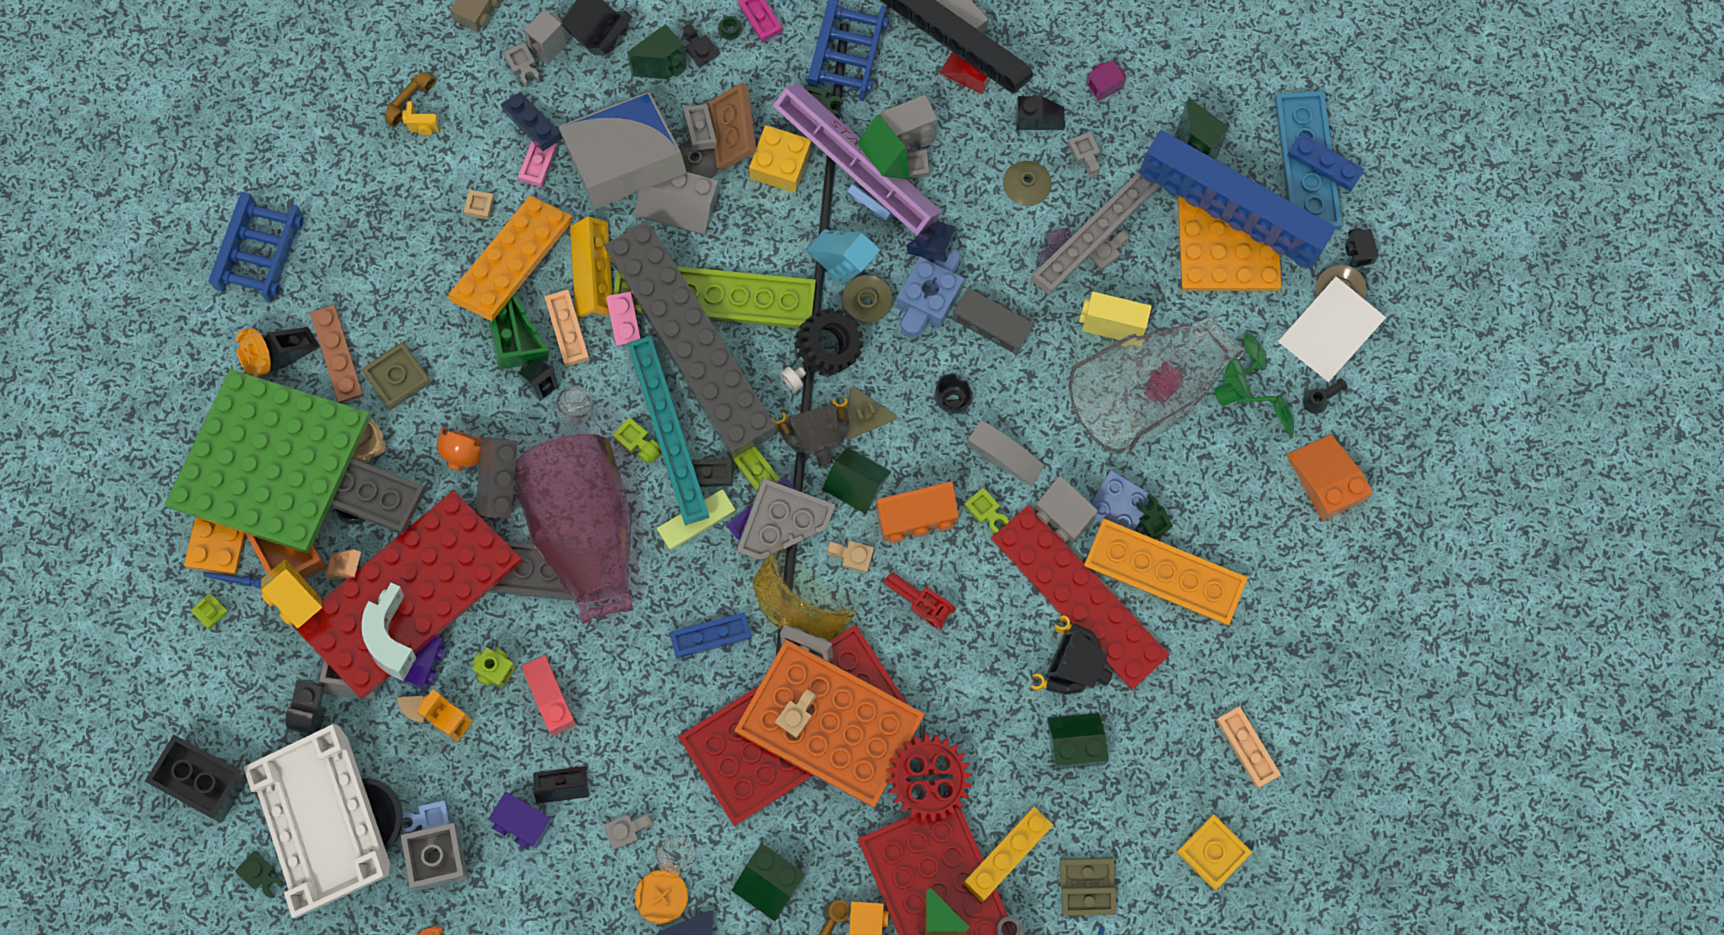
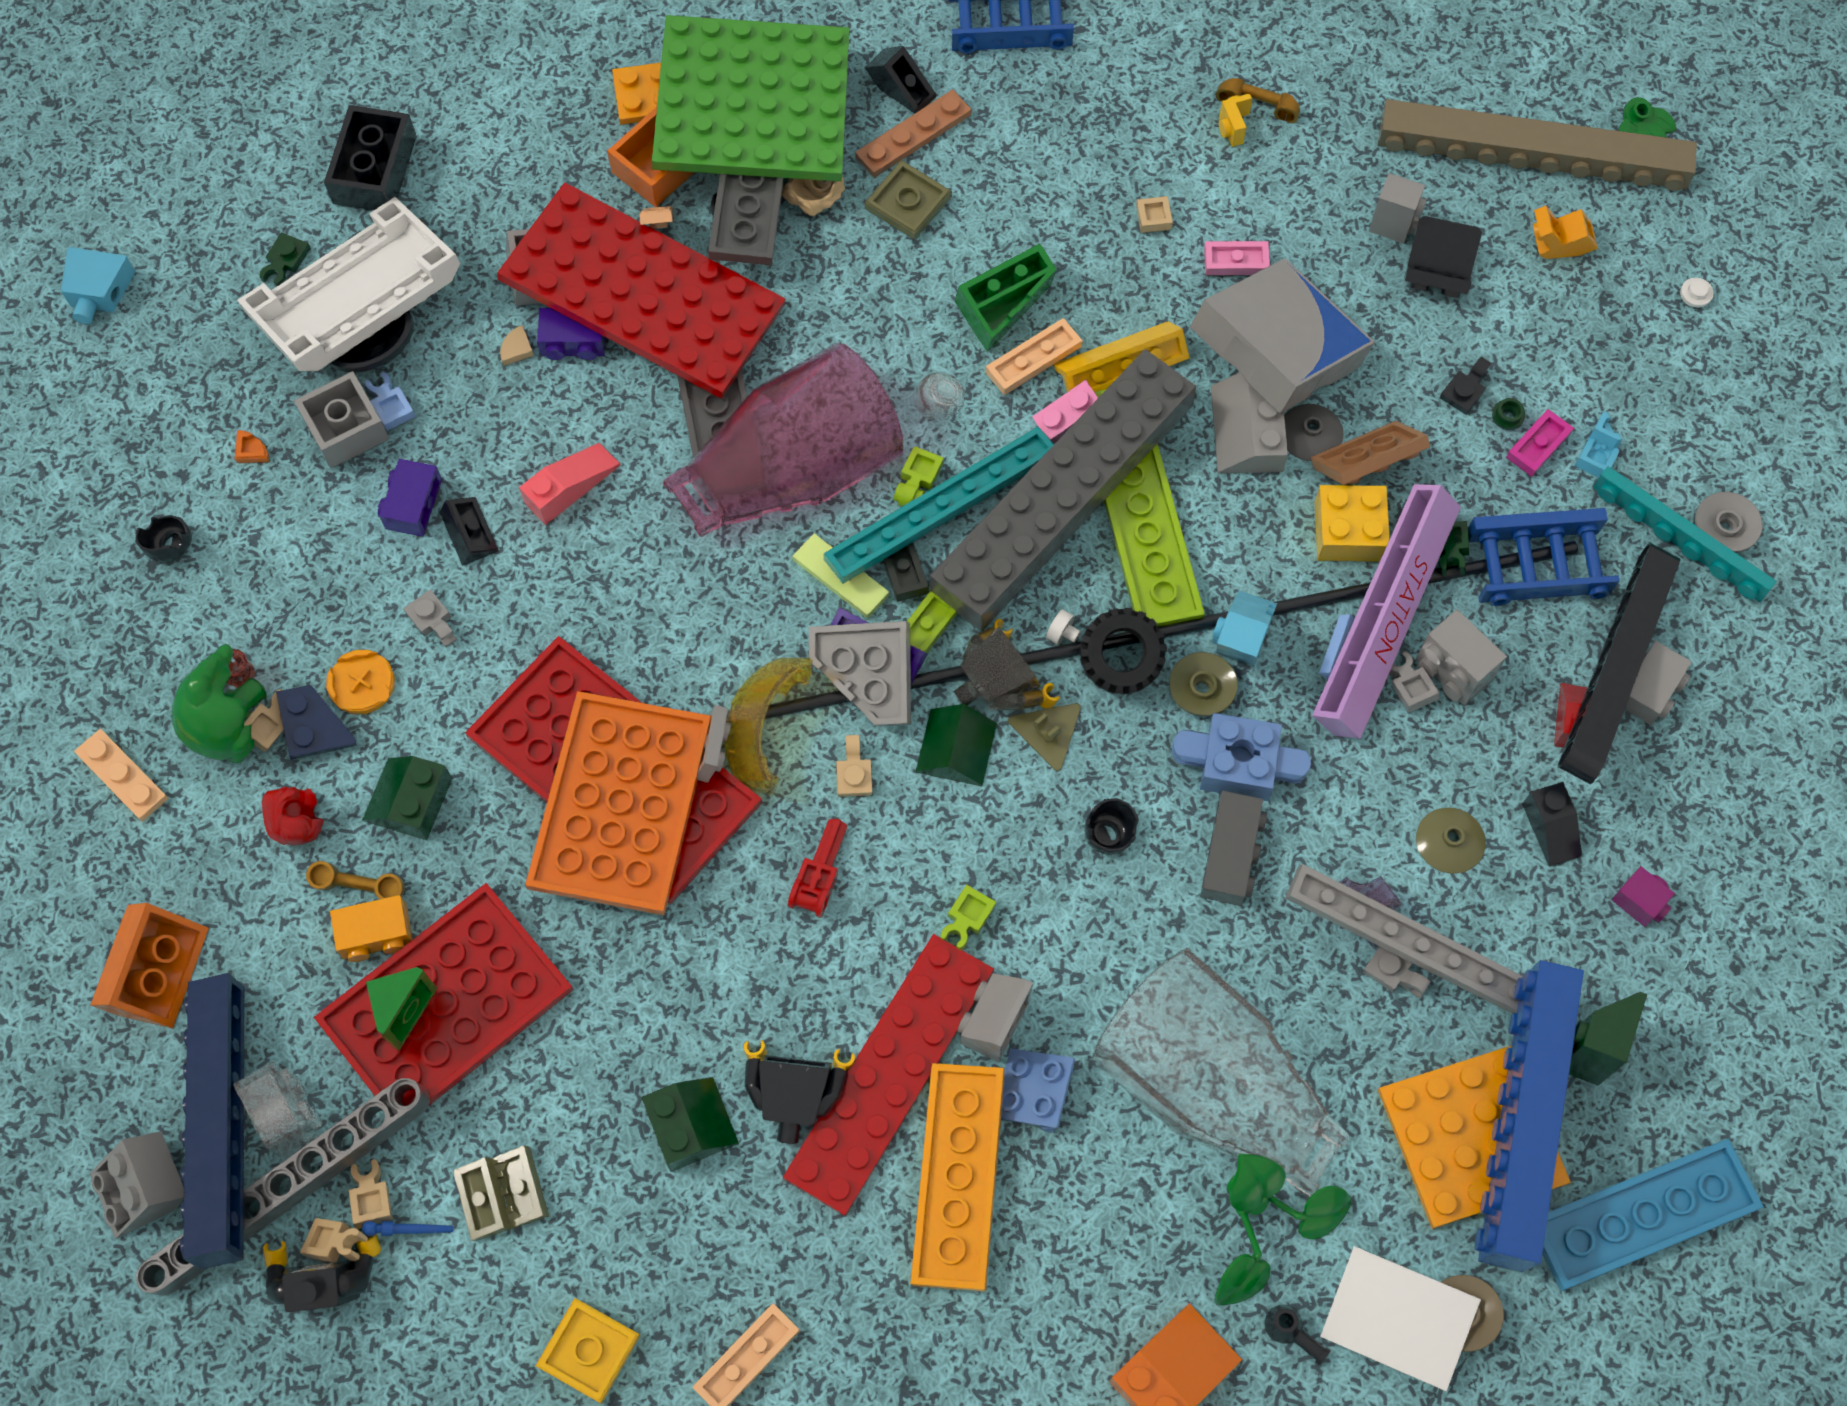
camera: 75 degrees right, 5 degrees down
(209, 611) = (569, 111): lime tile -> none
(245, 580) = (615, 133): blue piece -> none
(253, 352) = (878, 45): light orange tile -> none
(291, 594) = (595, 163): yellow brick -> none
(305, 712) = (474, 232): black brick -> none
(386, 652) = (572, 261): light aqua arch -> none
(444, 715) = (512, 376): light orange brick -> none
(458, 449) = (838, 284): orange cylinder -> none
(496, 477) = (812, 333): dark grey brick -> none
(499, 674) = (583, 410): lime brick -> none
(510, 258) = (1094, 261): light orange plate -> none
(521, 62) = (1356, 199): light grey plate -> none
(531, 121) = (1282, 232): dark blue plate -> none
(538, 378) = (954, 343): black slope -> none
(658, 56) = (1428, 337): dark green slope -> none
(678, 844) = (405, 668): clear hair -> none
(699, 127) = (1355, 418): light grey plate -> none
(710, 635) = (697, 635): blue plate -> none
(794, 717) = (613, 753): tan plate -> none
(885, 149) = (1405, 633): green slope -> none
(917, 512) = (931, 827): orange slope -> none
(930, 801) = (551, 954): red gear -> none
(934, 242) = (1308, 736): dark blue wing -> none
(1005, 453) = (1053, 917): light grey slope -> none
(1007, 854) = (513, 1074): yellow plate -> none
(1085, 150) = (1526, 899): light grey plate -> none
(1114, 316) = (1294, 1001): light yellow brick -> none
(1155, 520) = (1027, 1138): dark green plate -> none
(1164, 384) = (1223, 1096): clear pink brick -> none
(1325, 162) = (1651, 1237): blue plate -> none
(1361, 247) = (1541, 1326): black brick -> none

